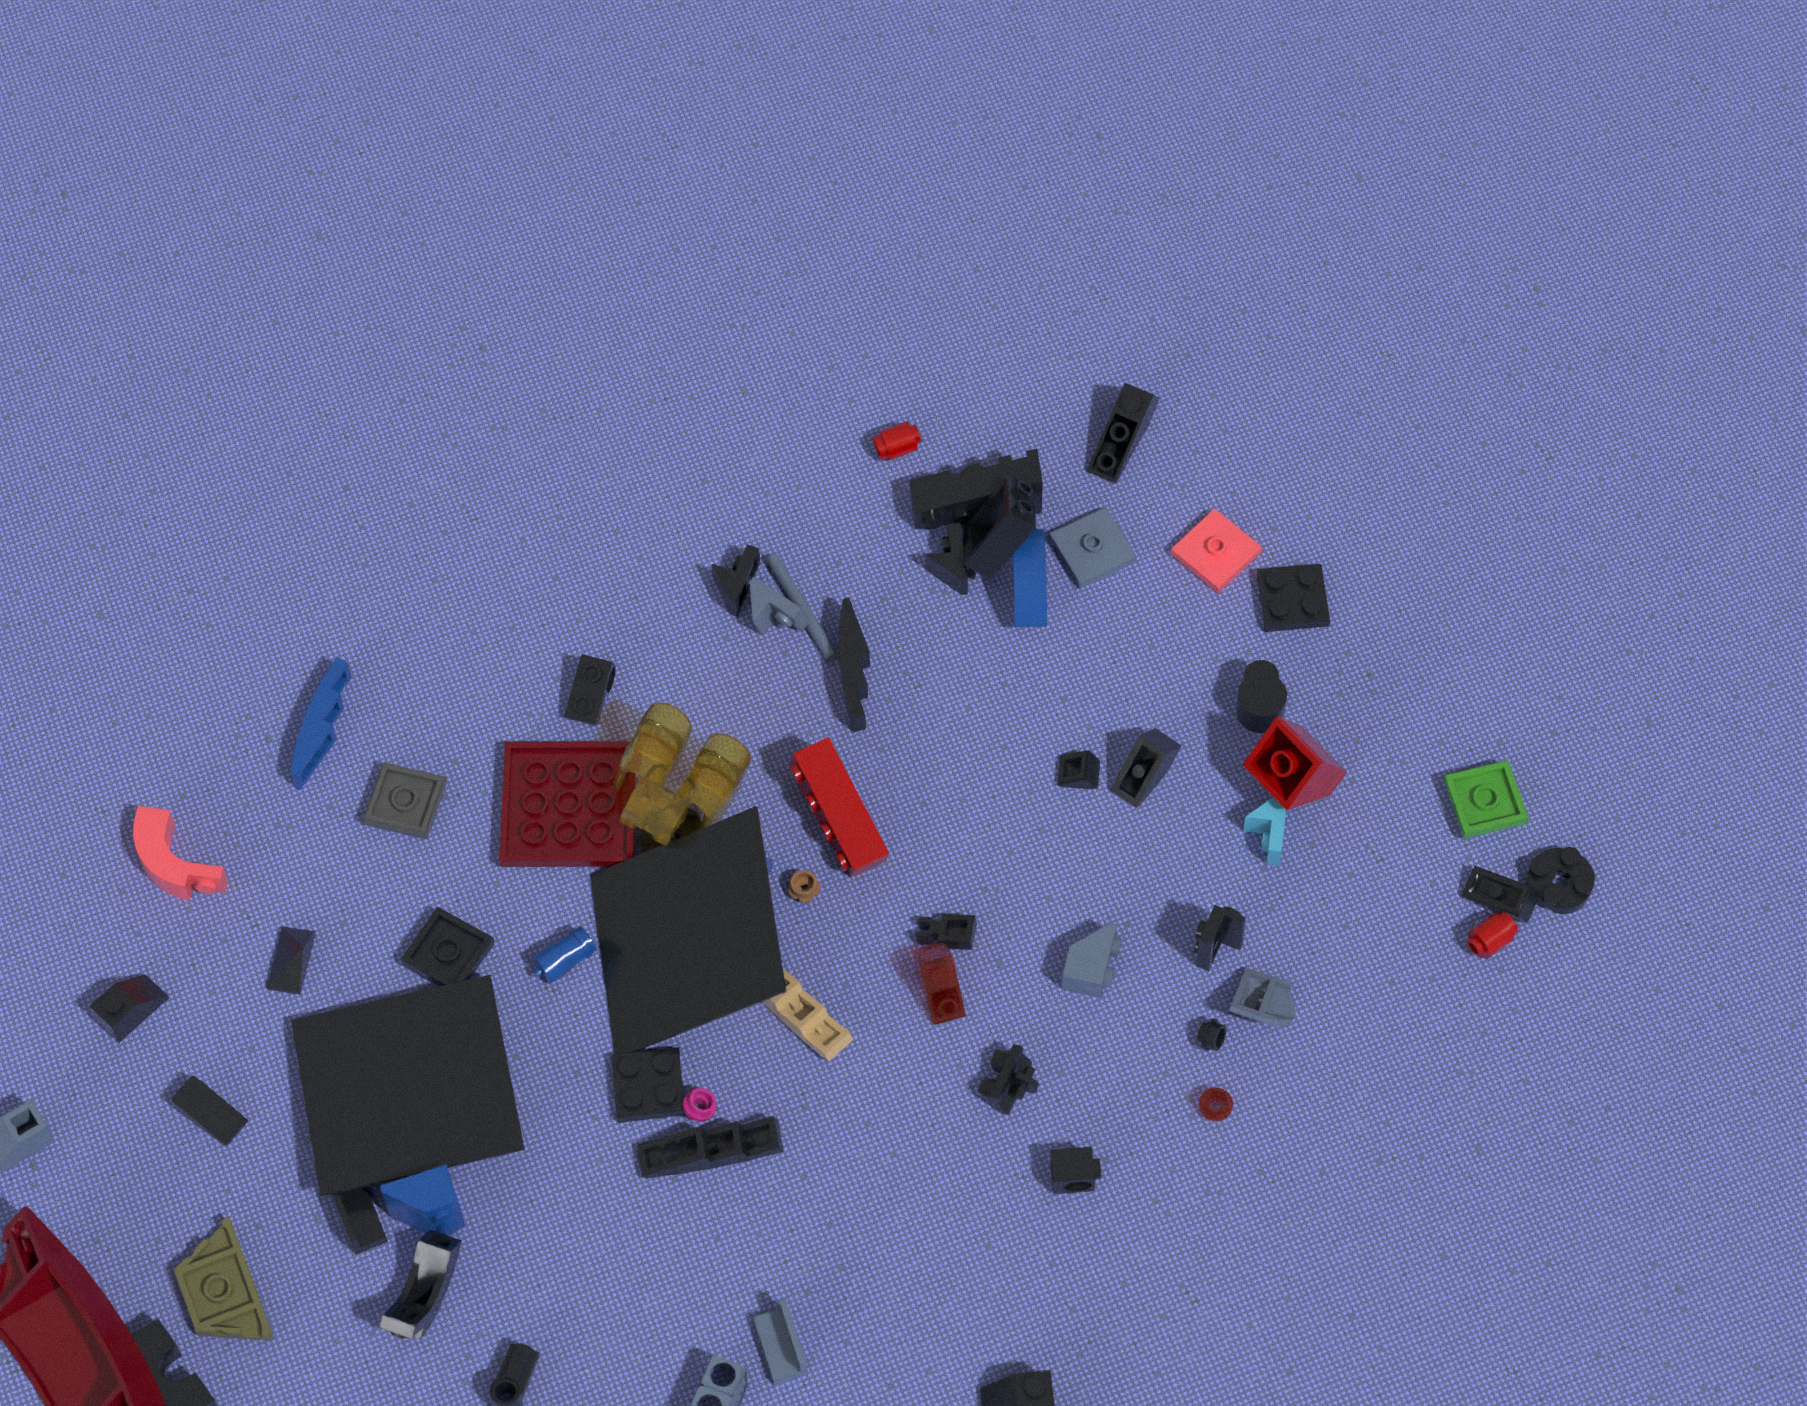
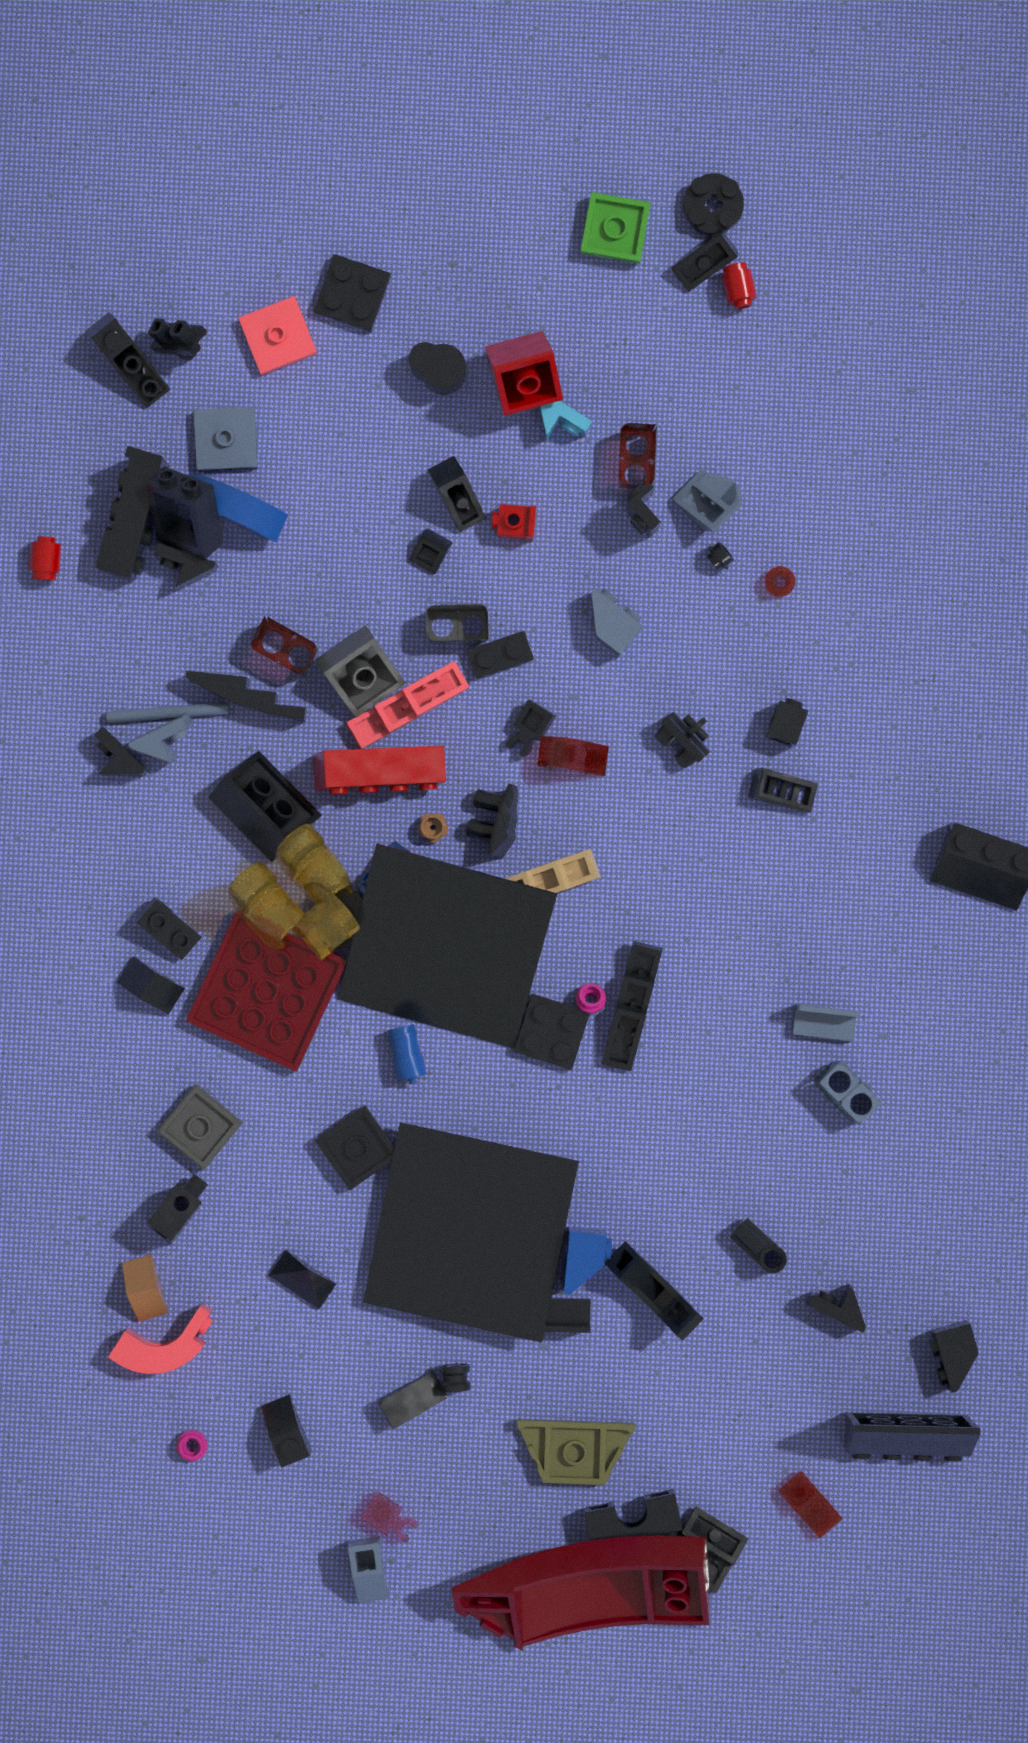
camera: 65 degrees left, 25 degrees up
(78, 918) = (183, 1450): none -> dark pink plate
(78, 1134) = (384, 1514): none -> clear pink plate
(219, 818) = (144, 1288): none -> medium nougat slope
(249, 1139) = (455, 1377): none -> black wheel
(310, 809) = (167, 1219): none -> black torso
(317, 728) = (102, 1178): blue slope -> none
(525, 702) = (150, 985): none -> black slope
(759, 715) = (262, 804): none -> black slope
(839, 944) = (502, 832): none -> black connector
(908, 652) = (289, 643): none -> clear red piece
(915, 813) = (407, 705): none -> coral slope
(925, 752) = (360, 671): none -> dark grey slope
(998, 1172) = (758, 783): none -> black slope
(1007, 876) = (500, 655): none -> black plate
(1015, 793) = (451, 612): none -> dark grey piece
(1150, 840) = (523, 530): none -> red brick
(1165, 462) = (176, 338): none -> black hips
(1284, 892) = (647, 432): none -> clear red piece

